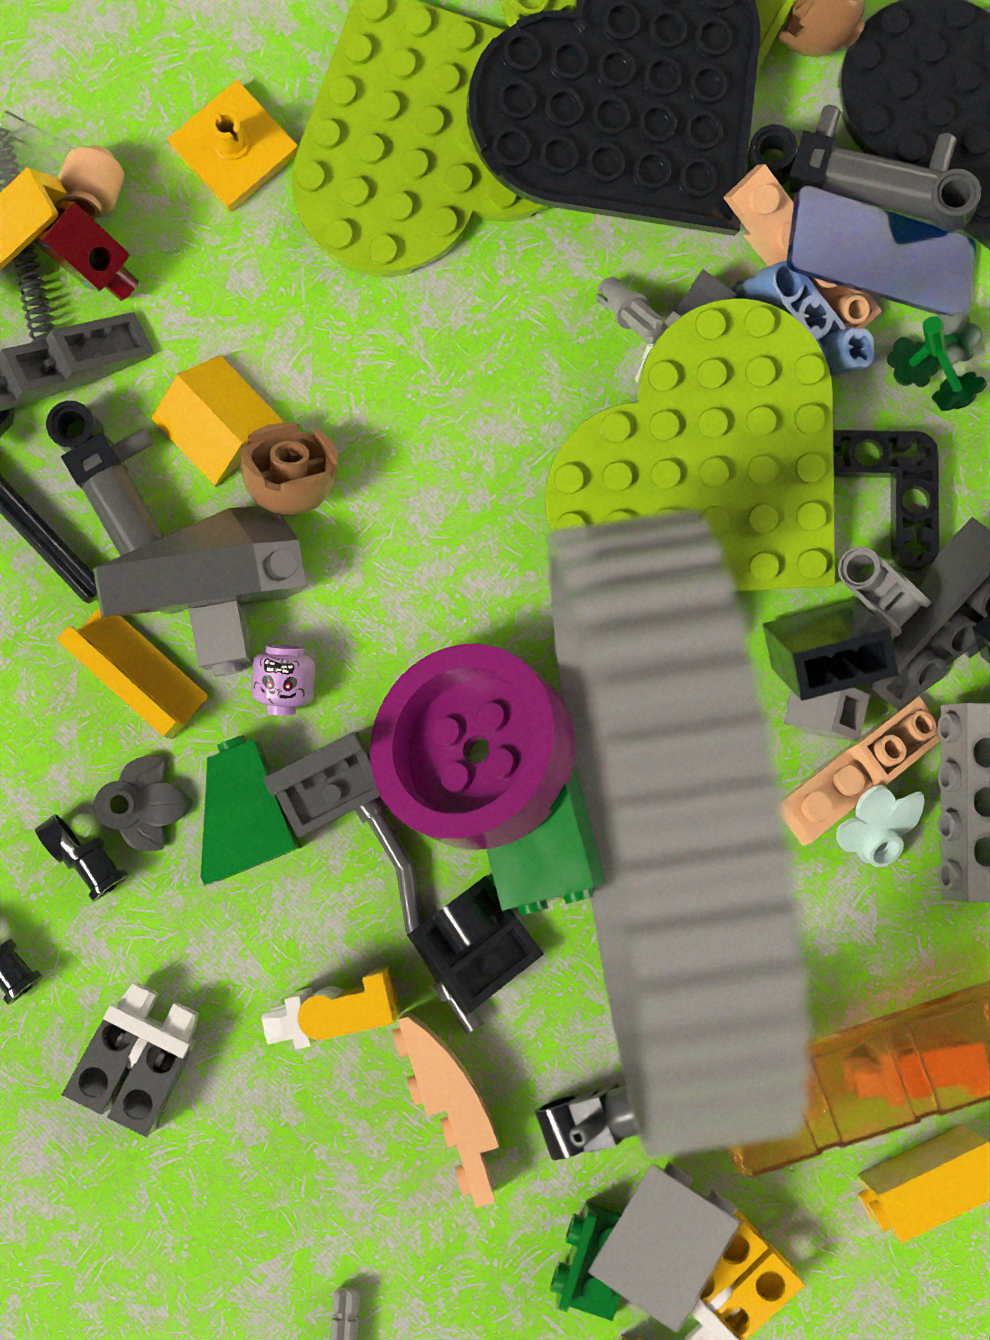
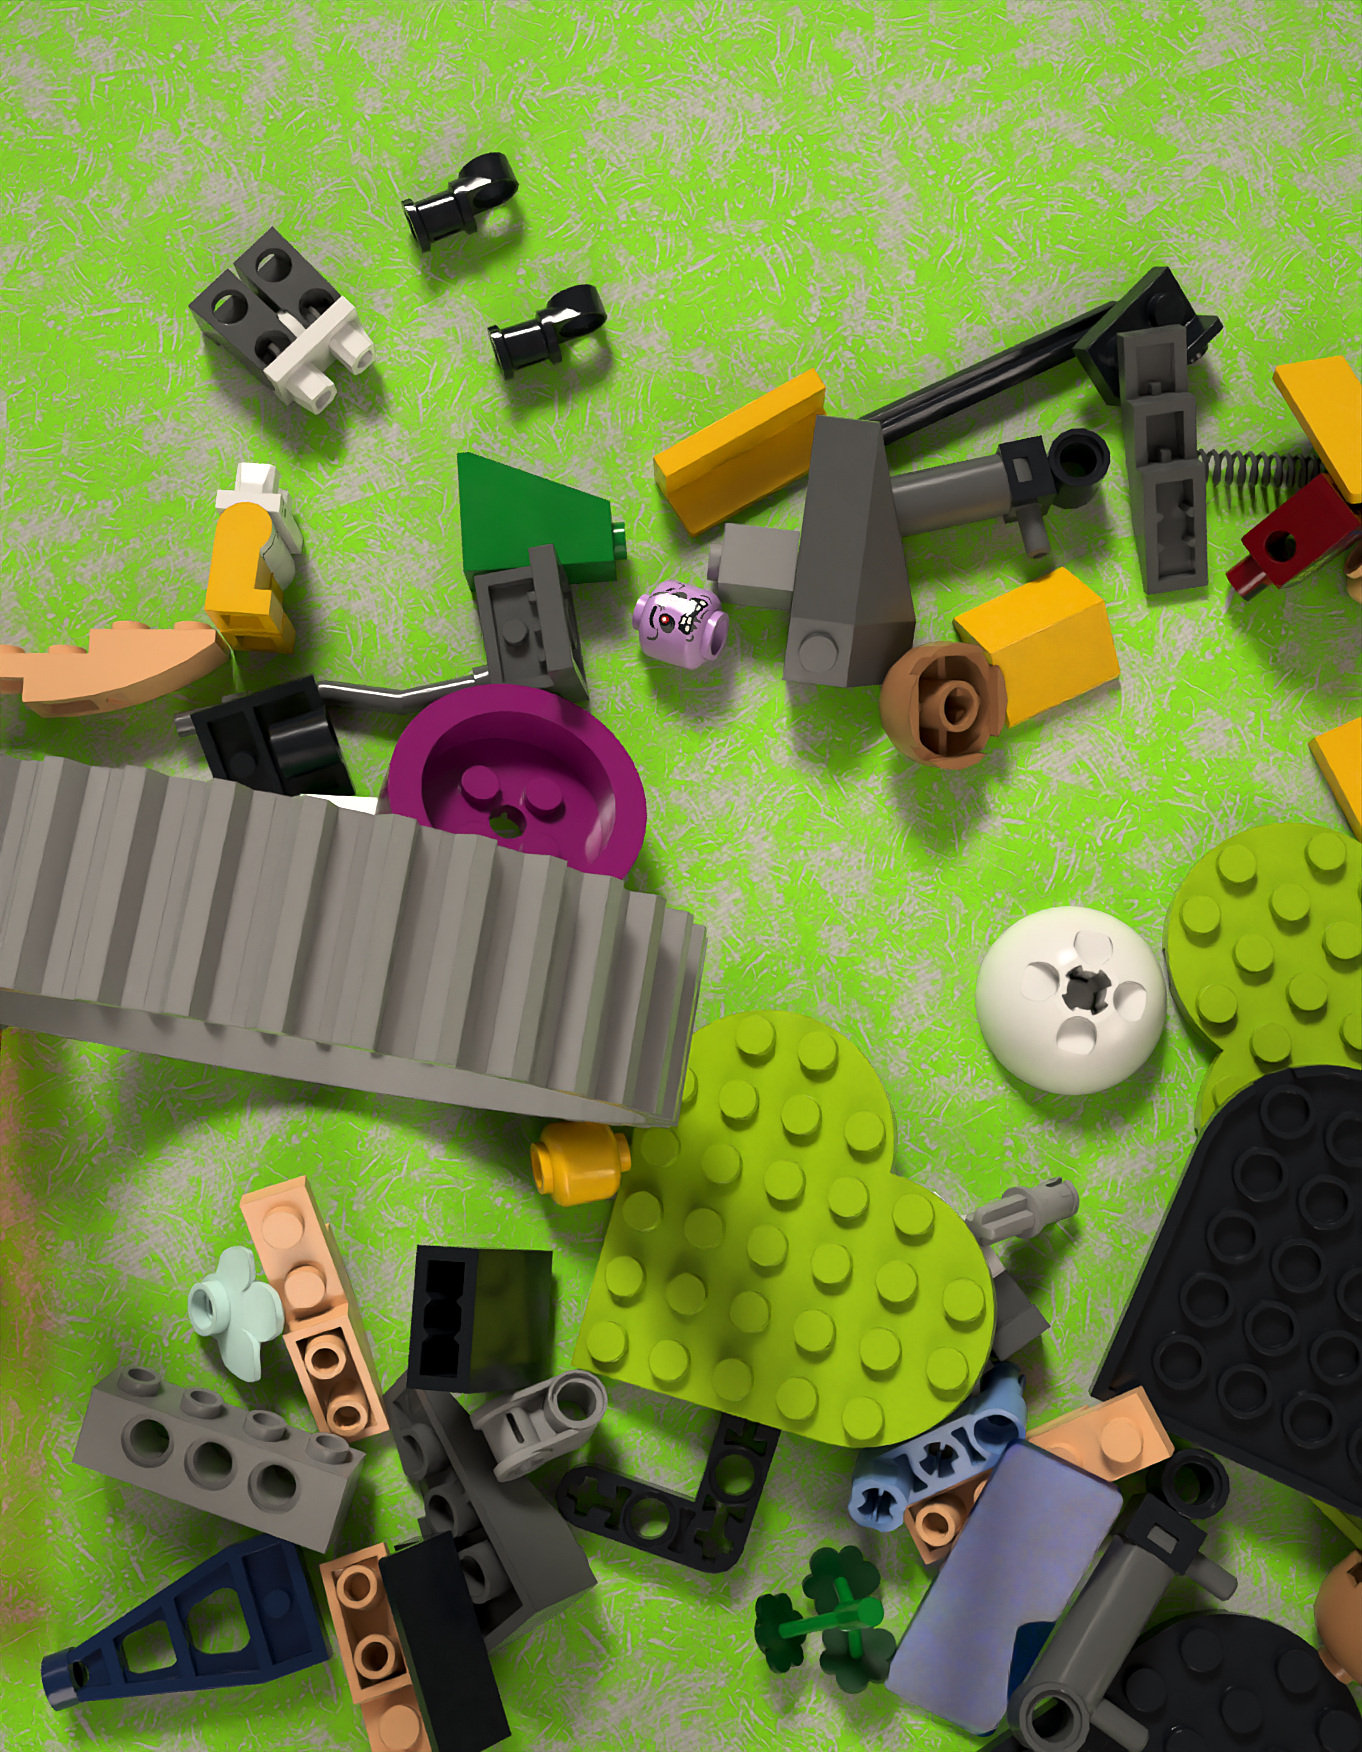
camera: 110 degrees right, 5 degrees down
(149, 803) = (583, 427): dark grey plate -> none
(457, 344) = (1043, 1020): none -> white piece
(830, 715) = (389, 1298): light grey brick -> none

